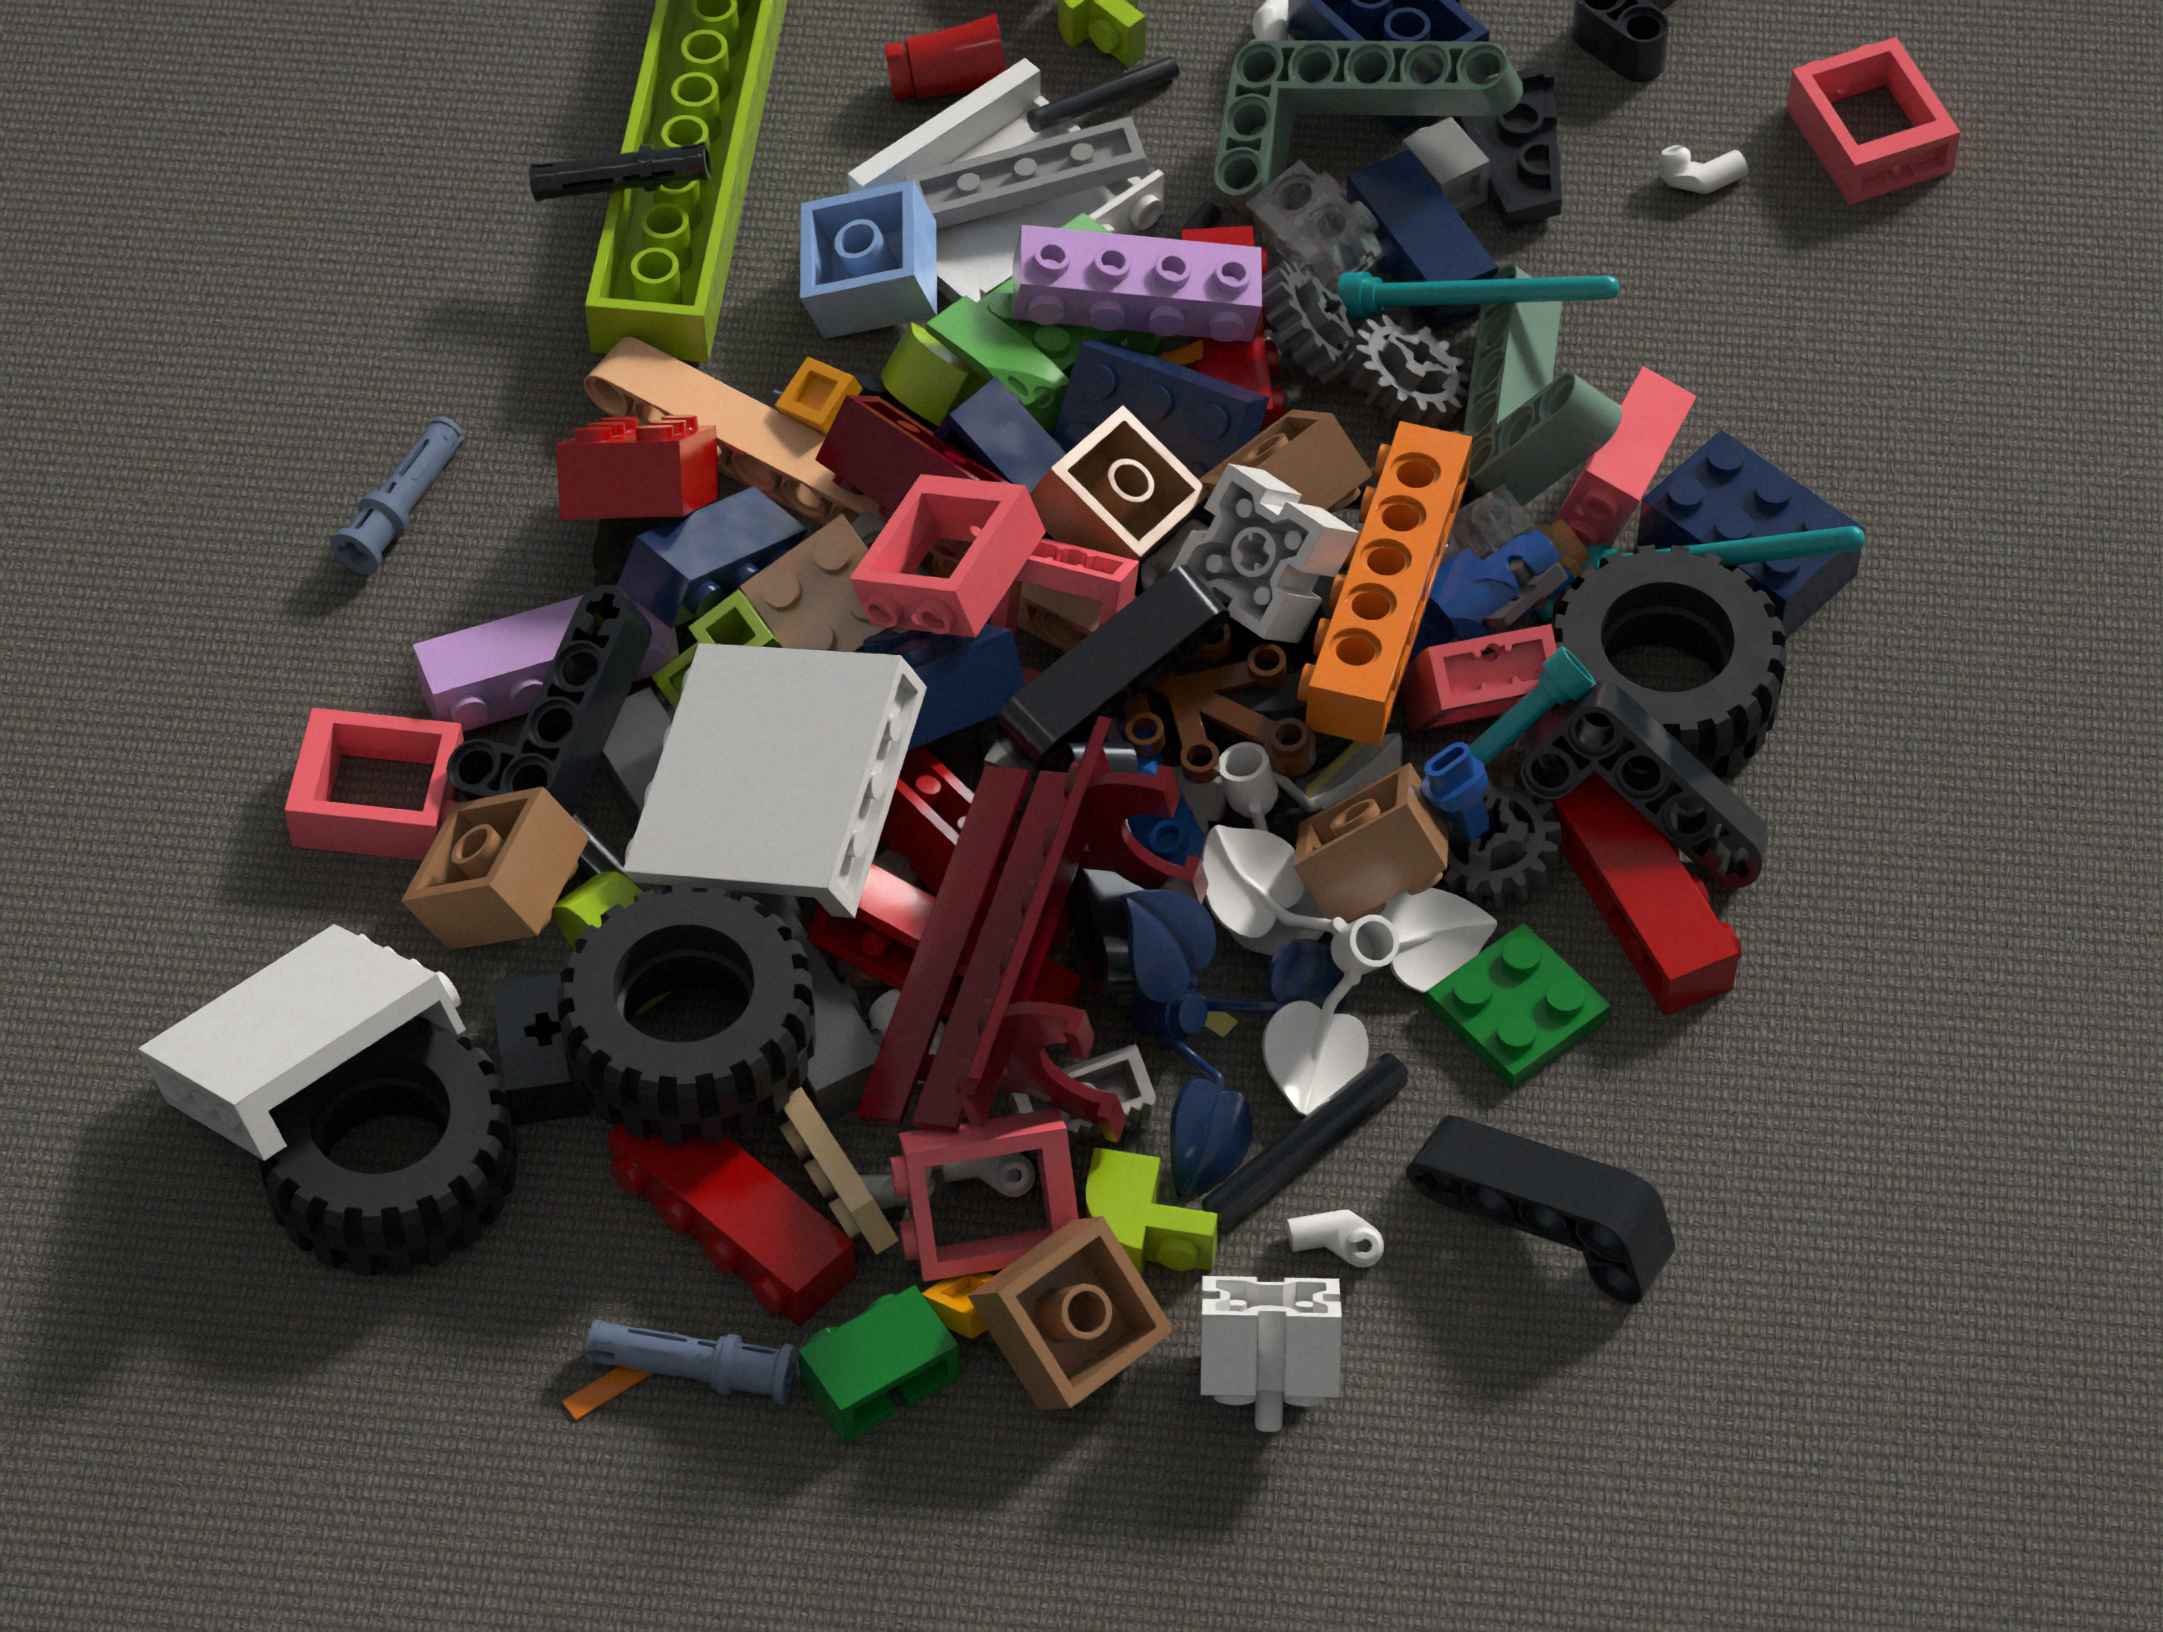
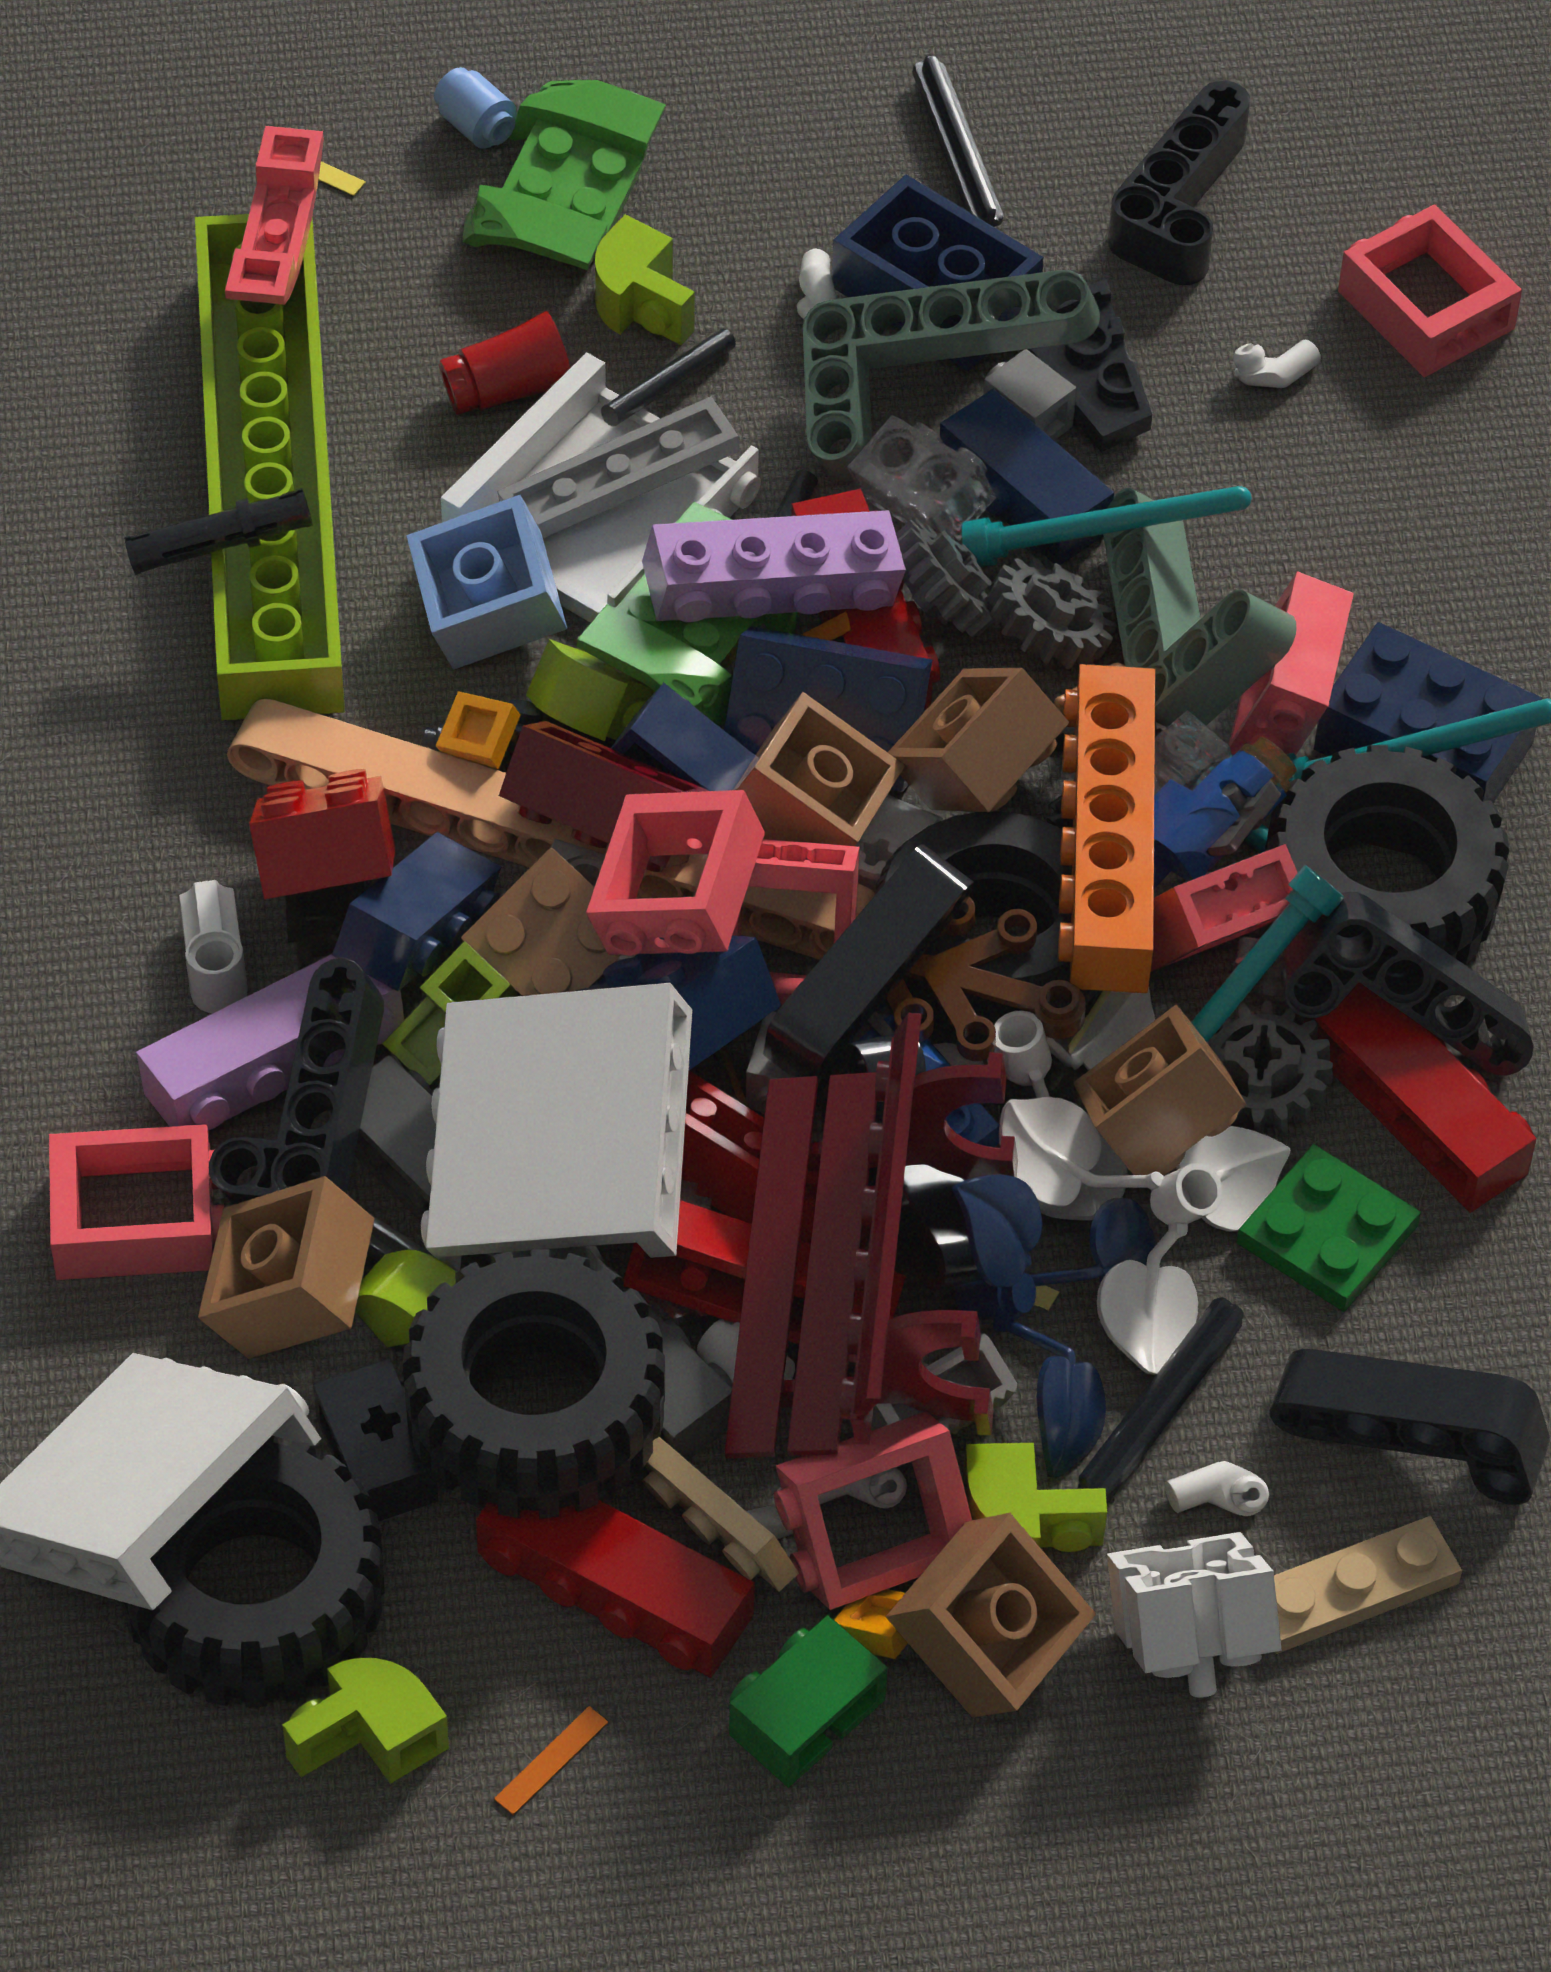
camera: 15 degrees left, 0 degrees up
(386, 512) = (60, 919): sand blue pin -> none
(463, 1291) = (373, 1706): none -> lime brick
(520, 557) = (213, 946): none -> white piece
(723, 1363) = (652, 1729): sand blue pin -> none
(1266, 552) = (992, 817): white brick -> none
(1445, 1351) = (1363, 1581): none -> tan plate
(1456, 787) = (1230, 1023): blue piece -> none

